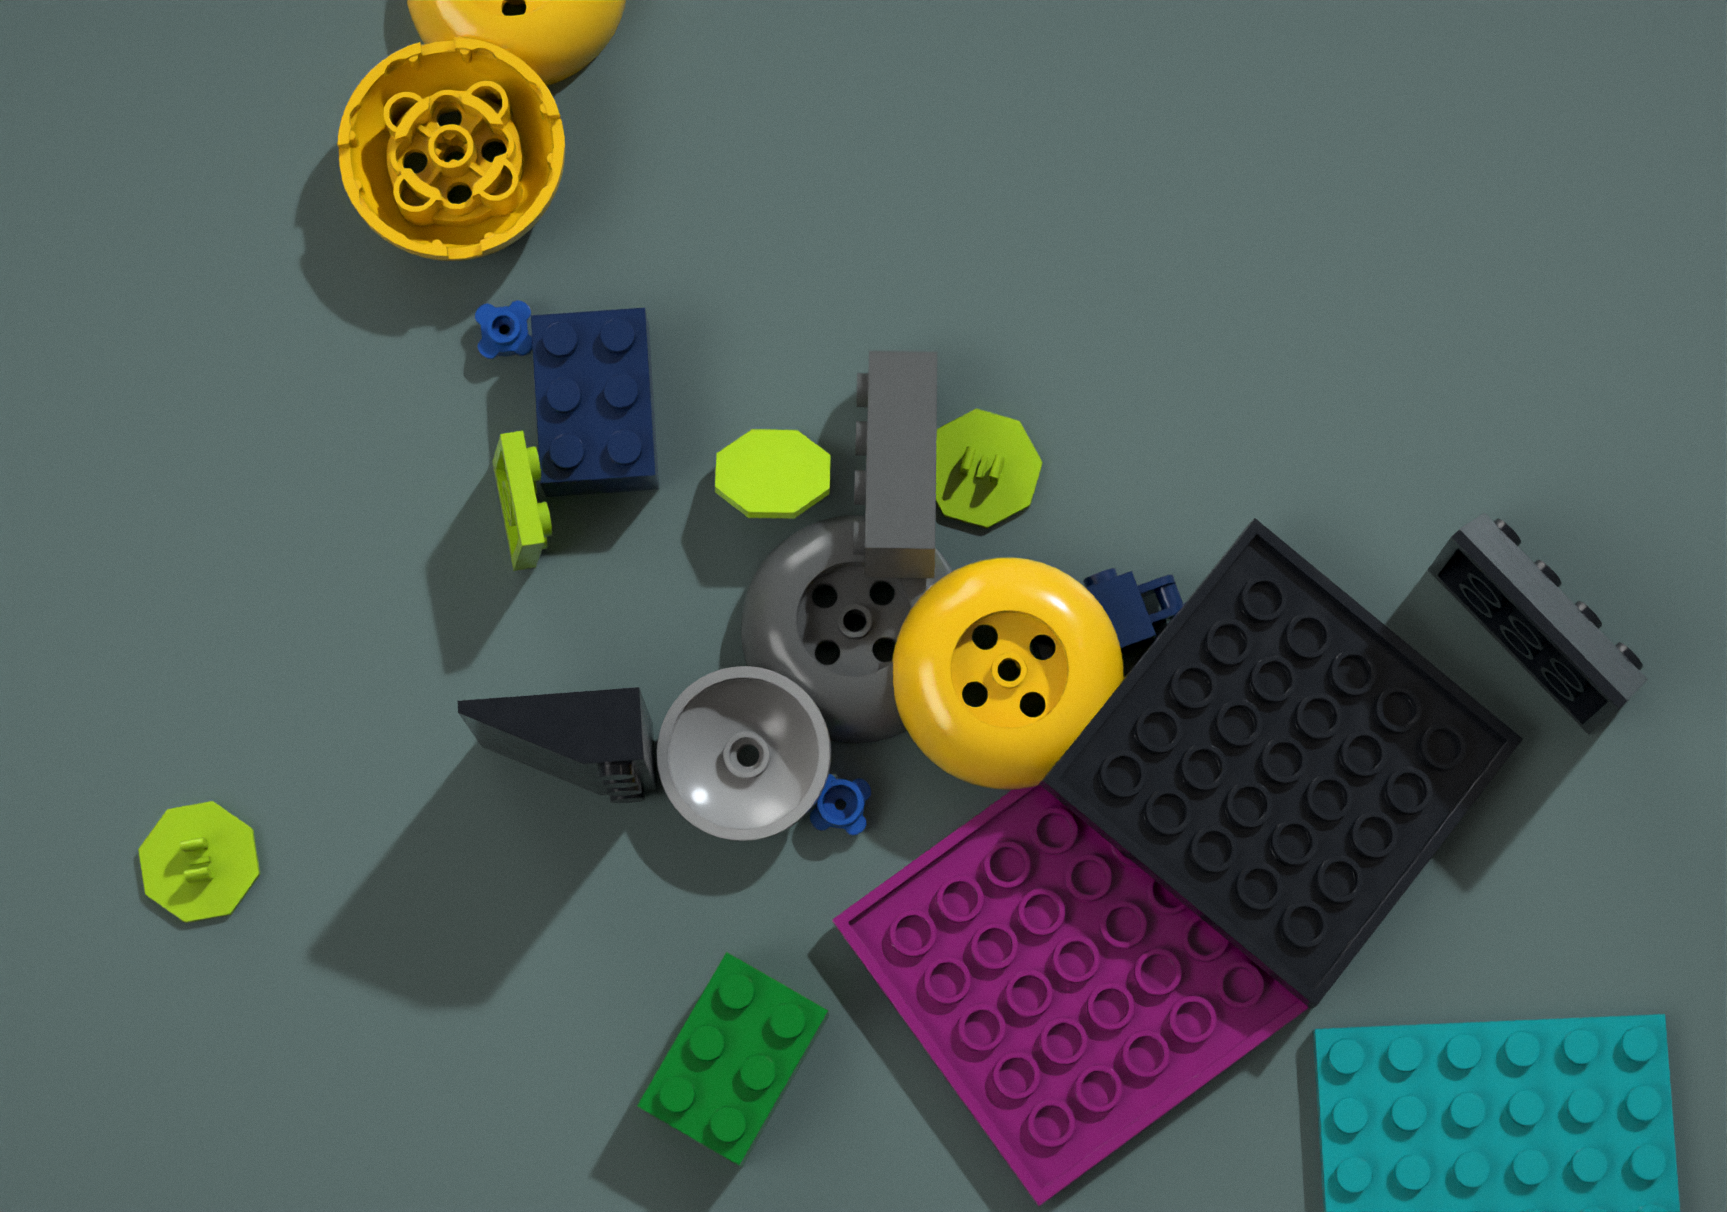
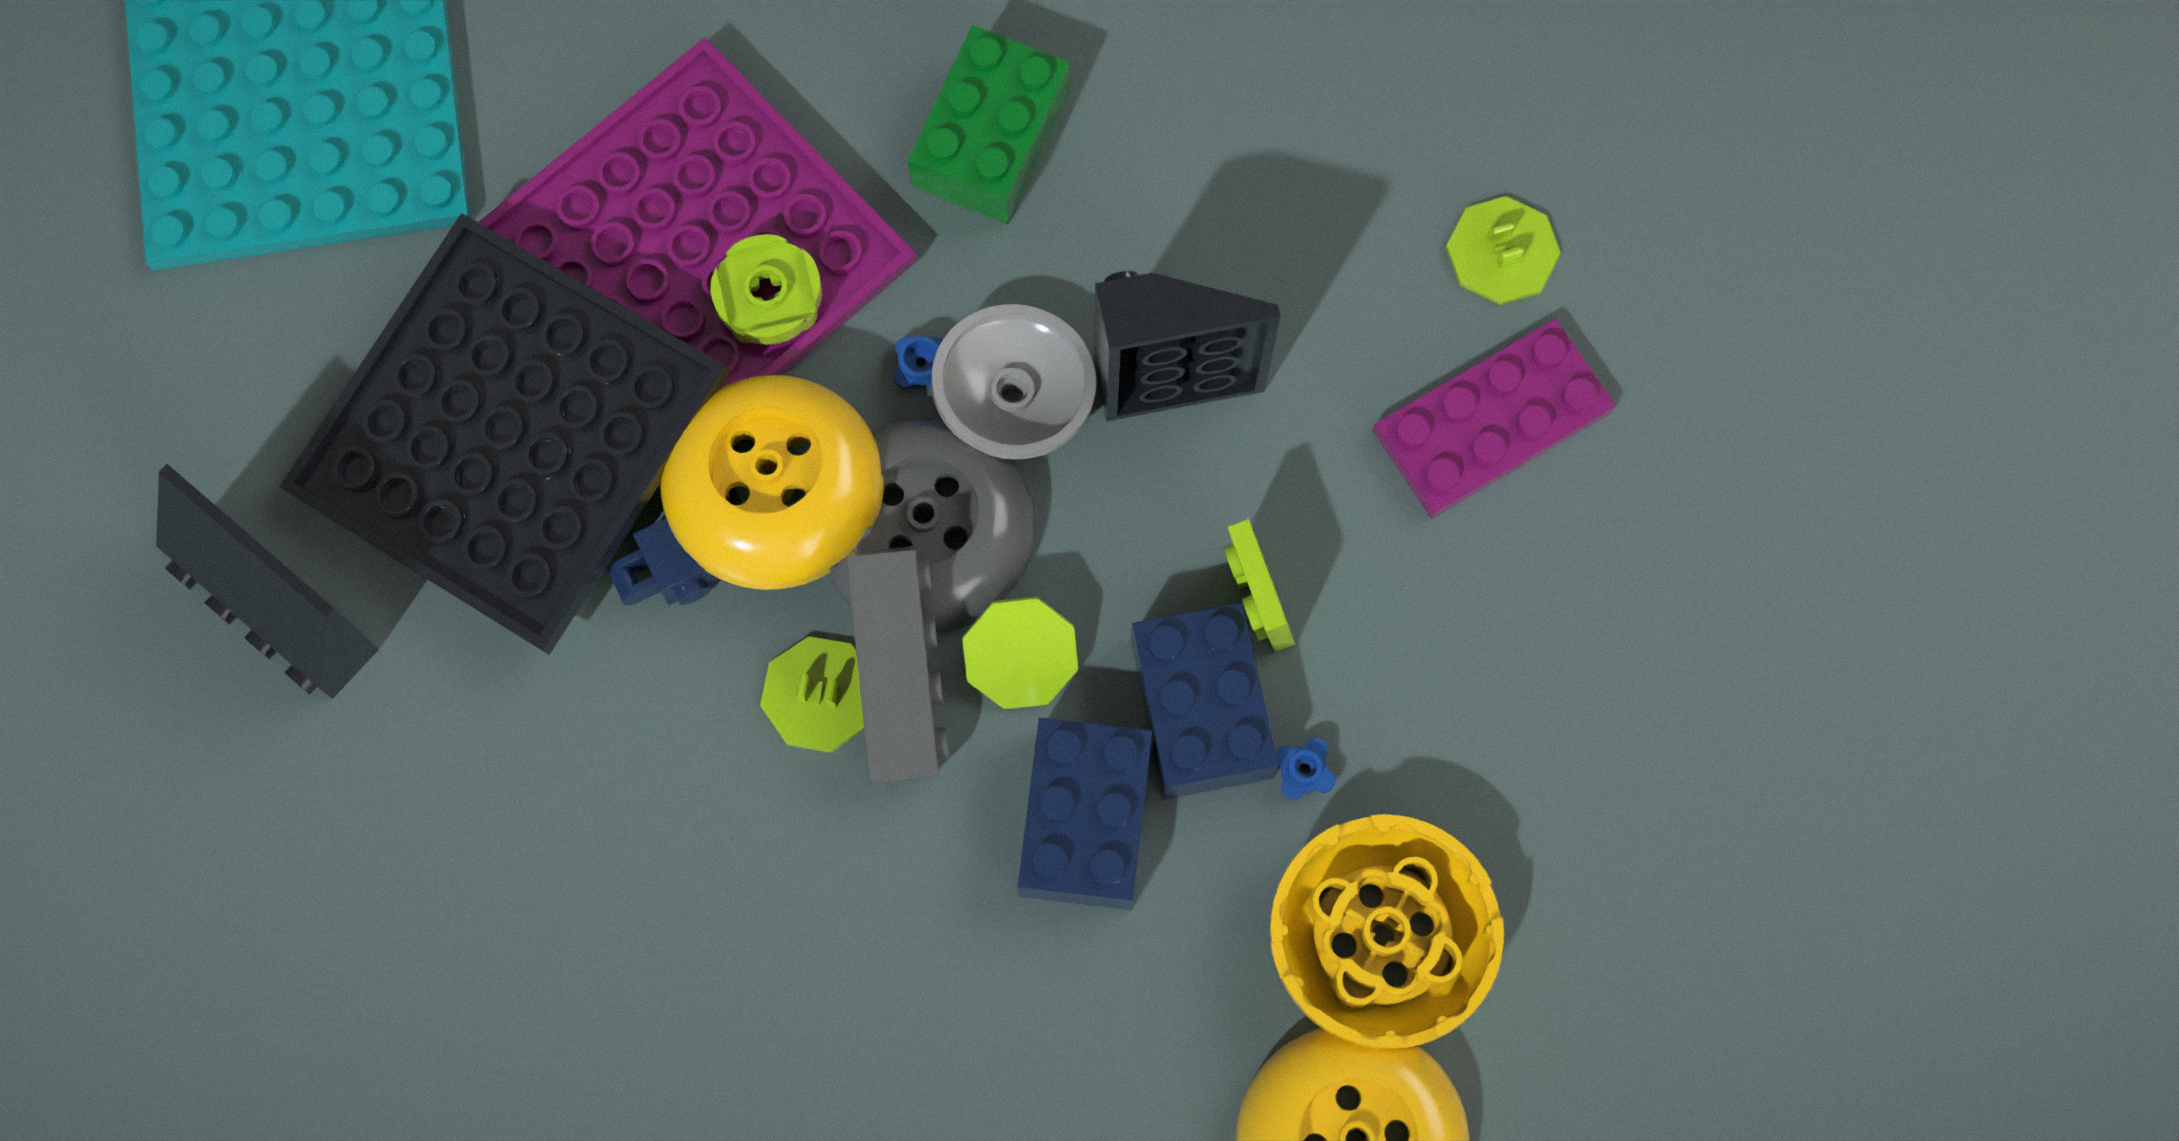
camera: 170 degrees right, 5 degrees down
(245, 672) = (1493, 418): none -> magenta plate
(728, 304) = (1084, 813): none -> dark blue brick
(1016, 859) = (772, 320): none -> lime plate

